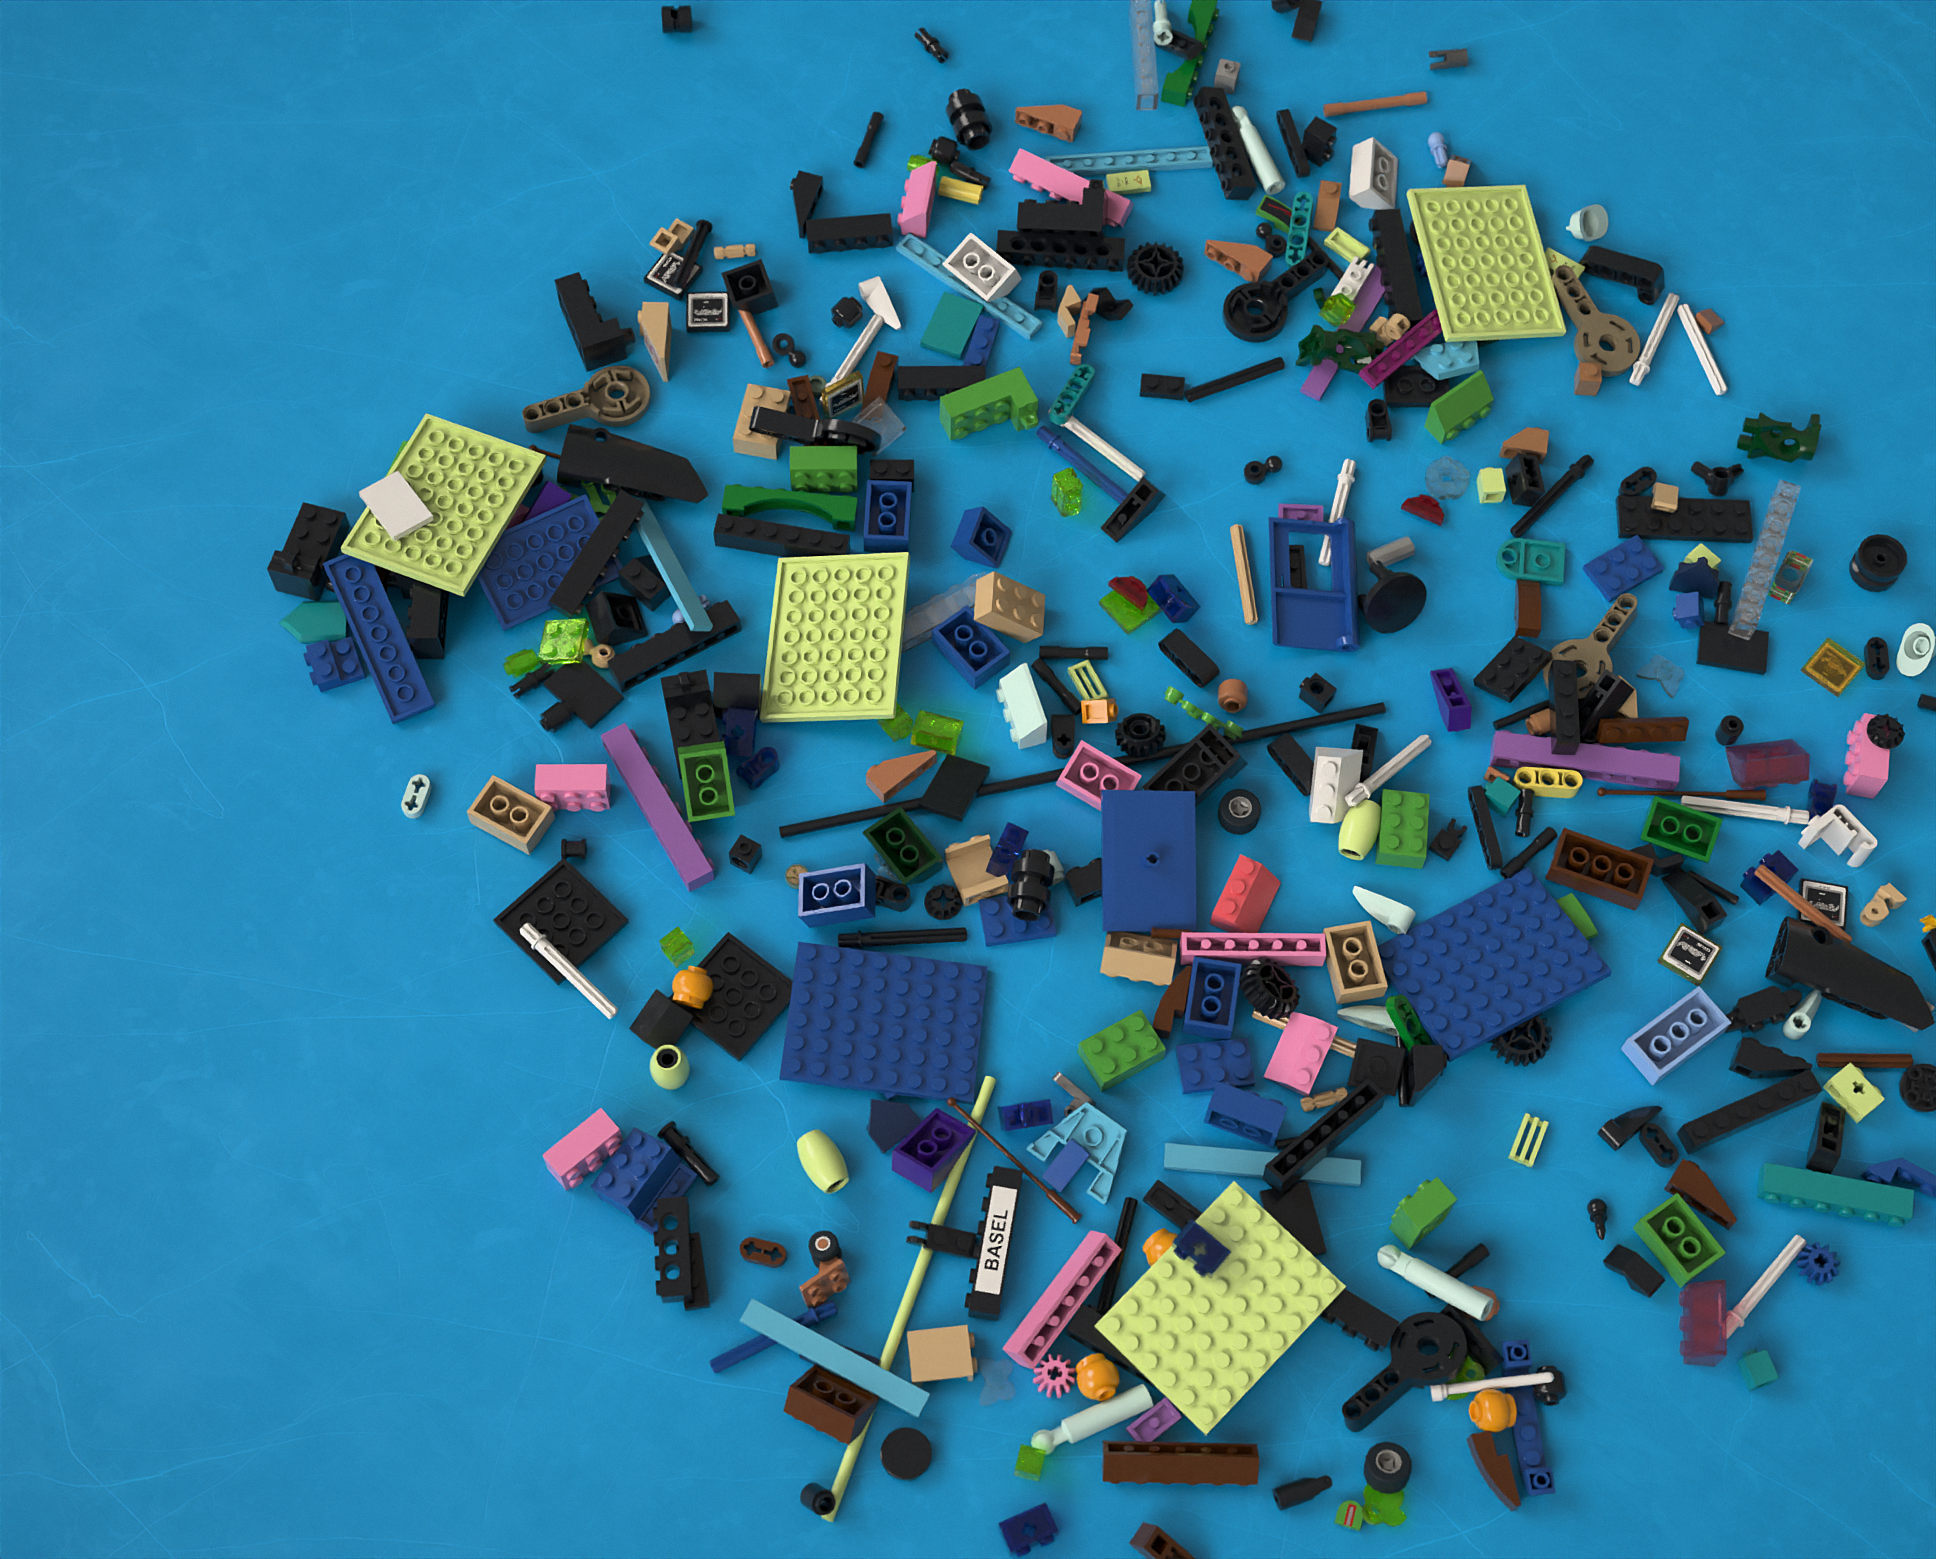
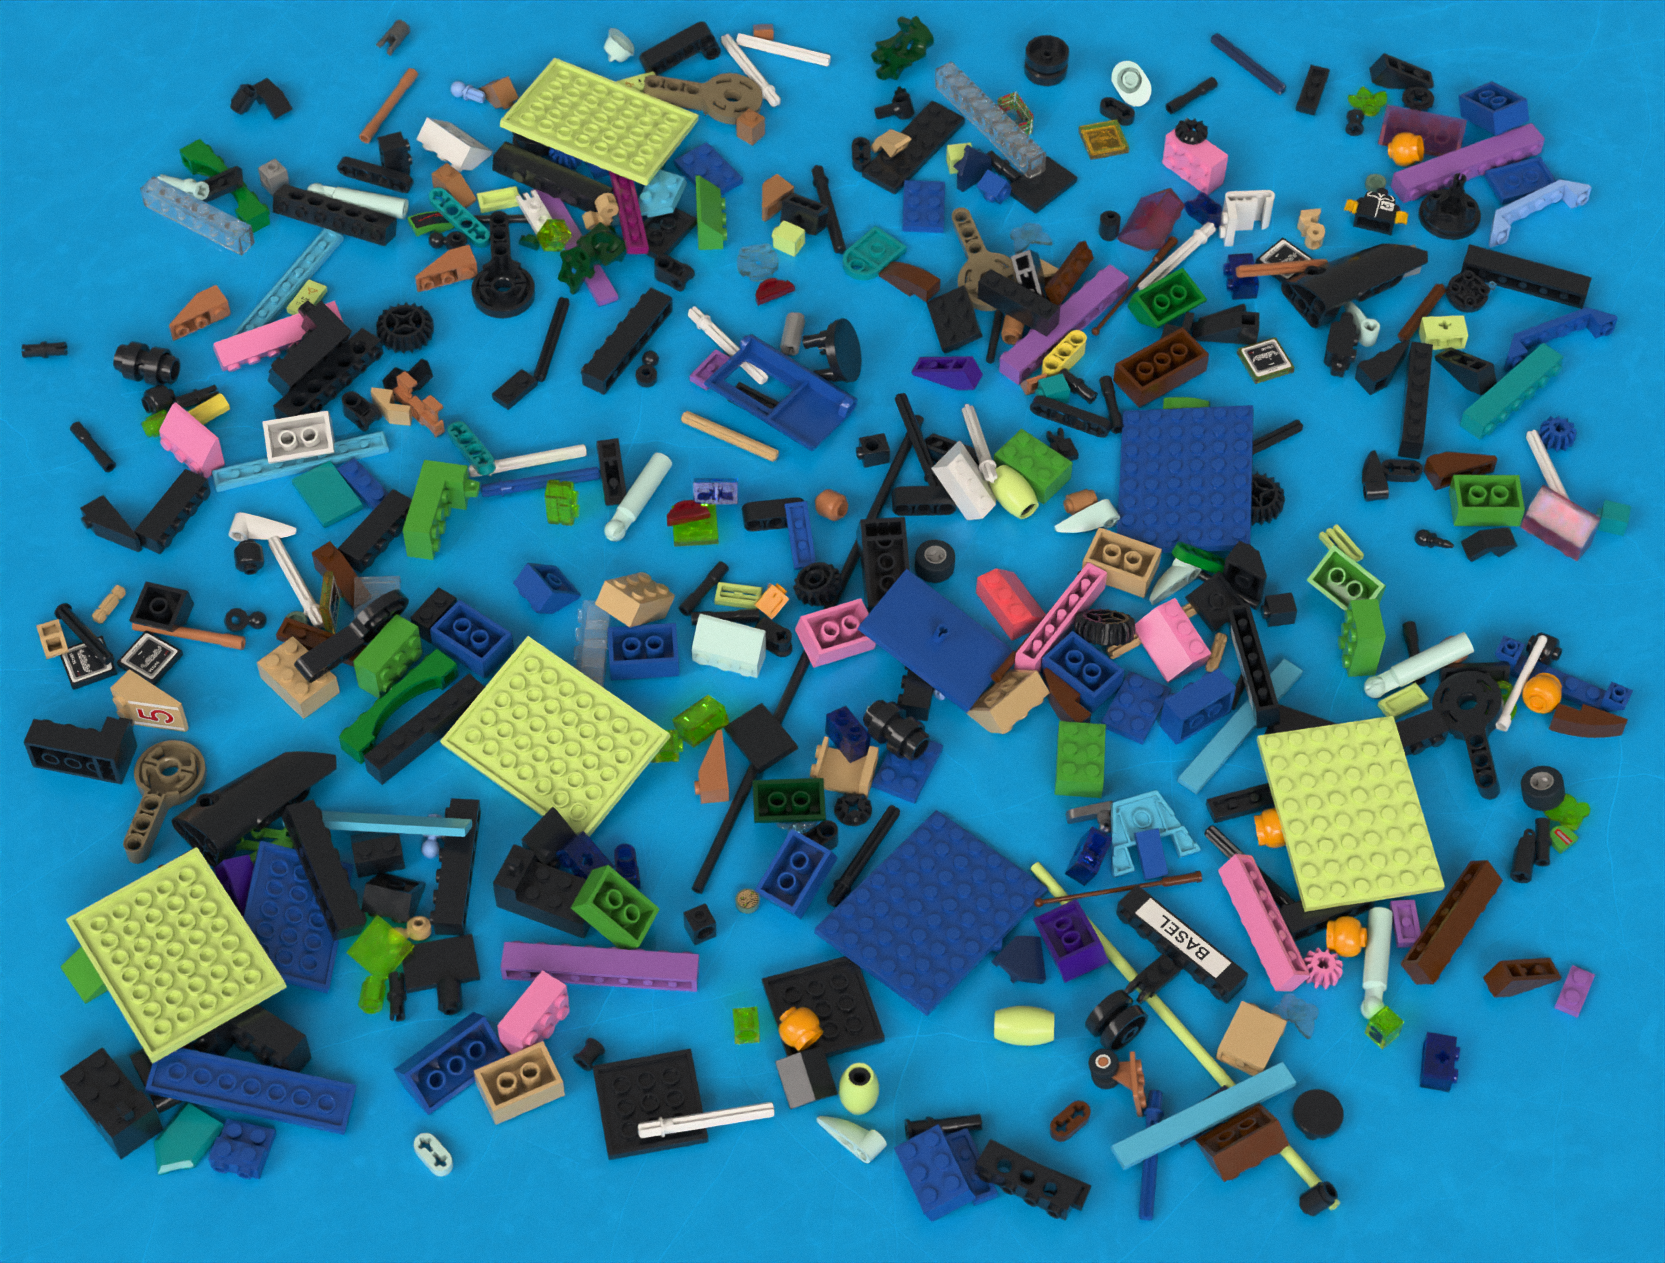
camera: 55 degrees left, 10 degrees down
(396, 506) = (147, 989): white tile -> none
(490, 751) = (449, 1062): none -> blue slope
(583, 1149) = (886, 1200): bright pink brick -> none
(634, 1092) = (857, 1140): none -> light aqua piece
(874, 1232) = (1116, 1020): none -> black wheel
(1123, 545) = (637, 496): none -> light aqua piece
(1186, 682) = (800, 534): none -> blue plate
(1195, 1235) = (1301, 788): clear blue brick -> none
(1230, 729) = (843, 530): bright green plant -> none
(1277, 434) = (626, 341): none -> black brick
(1330, 1499) = (1542, 841): none -> black pin
(1360, 711) = (917, 439): none -> black axle
(1395, 1291) = (1403, 701): none -> yellowish green tile
(1396, 890) = (1079, 500): none -> medium nougat brick
(1410, 1125) = (1279, 609): none -> black brick
(1474, 1167) = (1345, 579): none -> bright green slope
(1514, 378) = (708, 164): none -> blue plate
(1604, 1012) = (1276, 436): none -> black axle
(1675, 1035) = (1327, 404): light blue brick -> none

